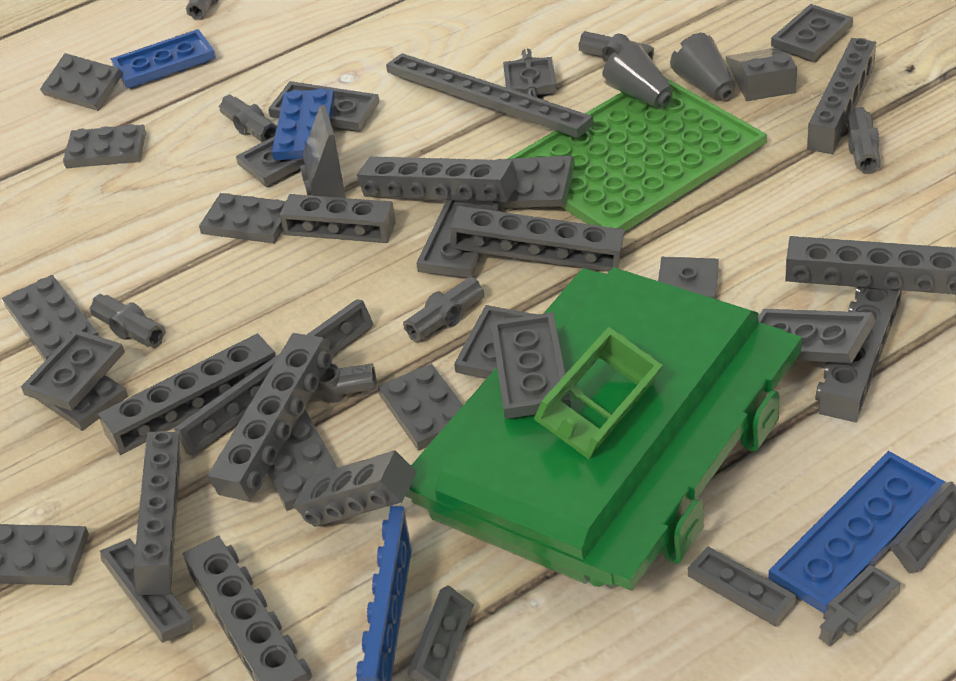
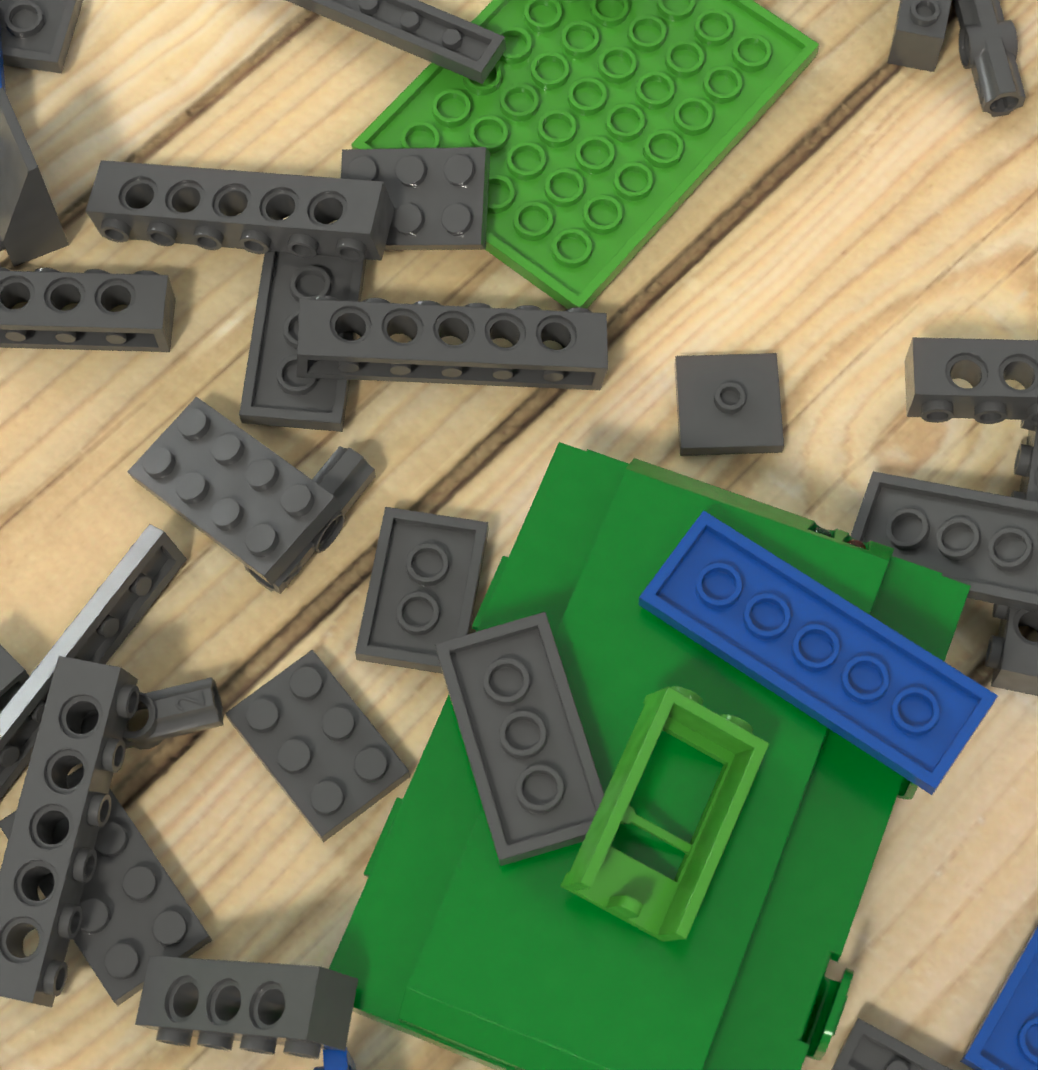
camera: 15 degrees left, 25 degrees up
(405, 289) = (234, 490): none -> dark grey plate
(703, 339) = (818, 652): none -> blue plate

